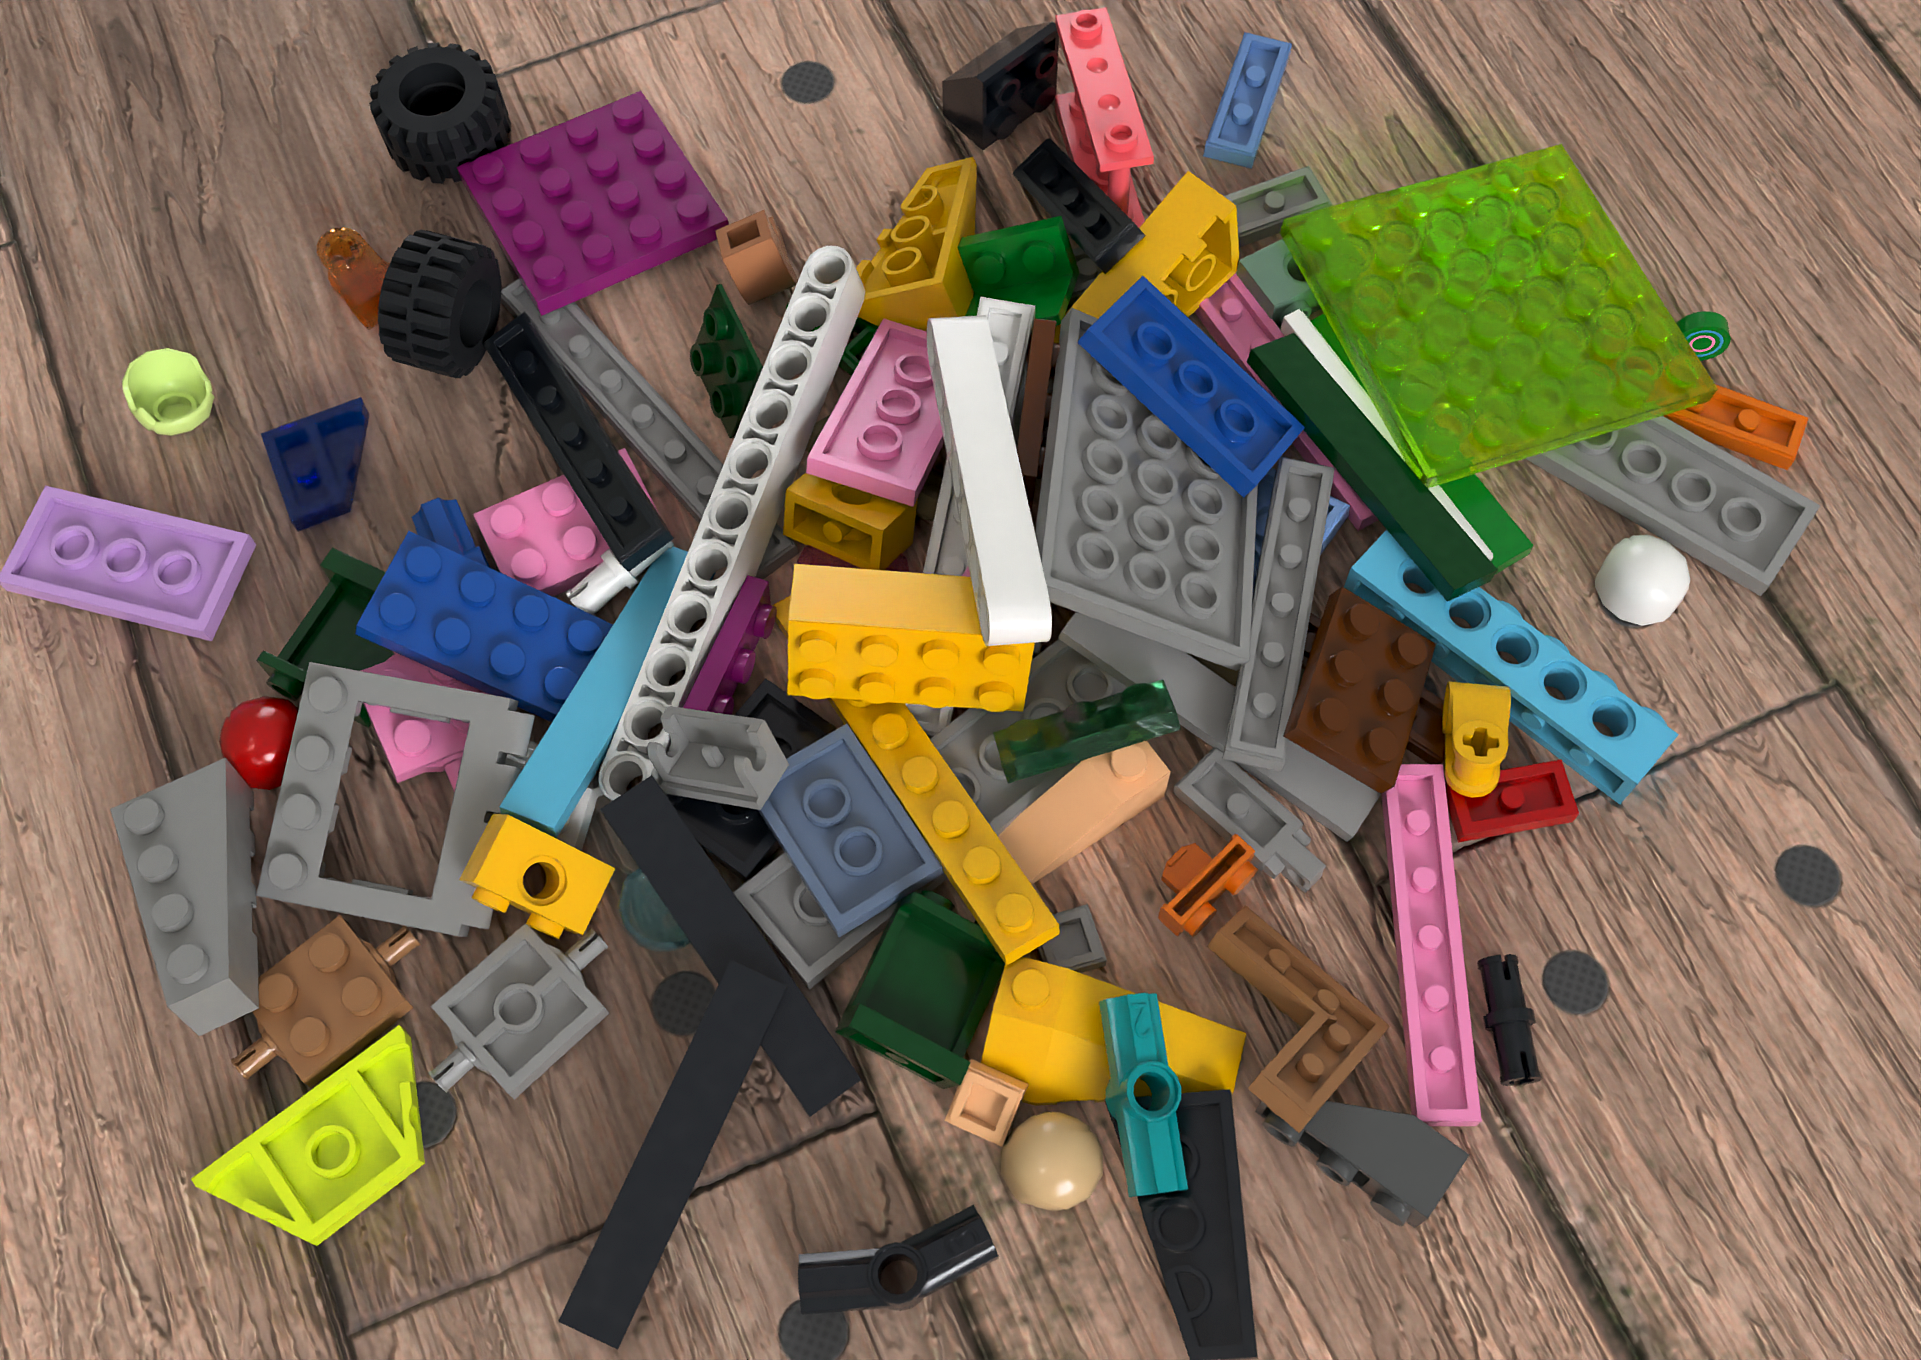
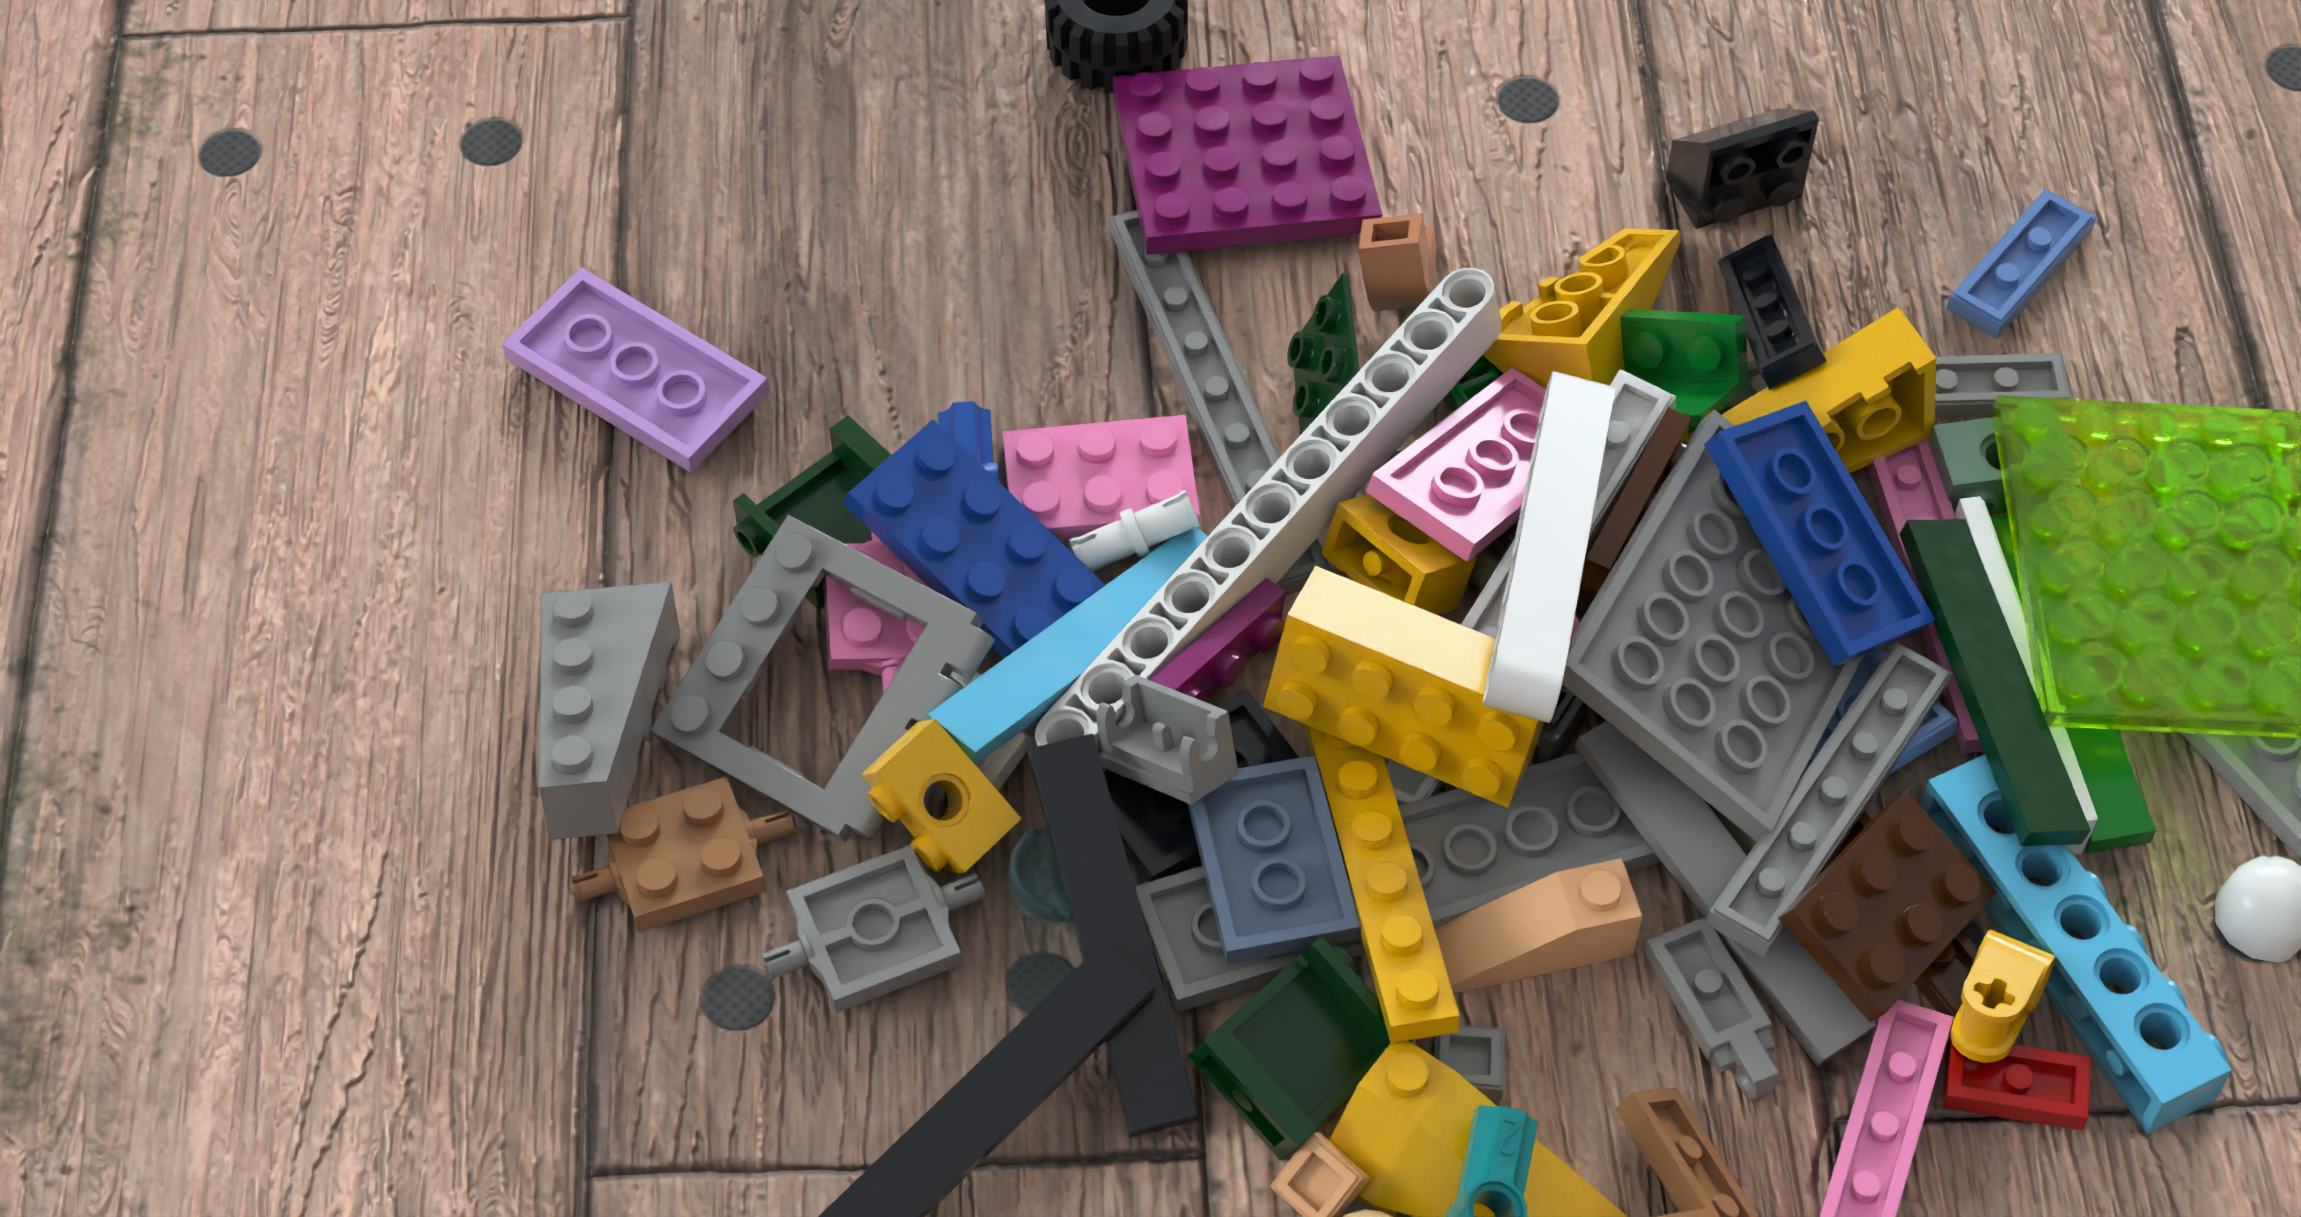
camera: 20 degrees right, 10 degrees down
(168, 391) = (735, 213): yellowish green hair -> none
(259, 739) = (706, 582): red hair -> none
(319, 462) = (863, 330): clear blue wing -> none
(330, 1147) = (637, 991): neon yellow wing -> none
(353, 272) = (973, 159): clear orange piece -> none
(439, 303) = (1046, 208): black tyre -> none
(578, 442) = (1138, 390): black tile -> none
(1086, 730) = (1566, 843): clear green plate -> none
(1102, 116) = (1833, 218): coral fence -> none
(1201, 881) = (1638, 1048): orange piece -> none

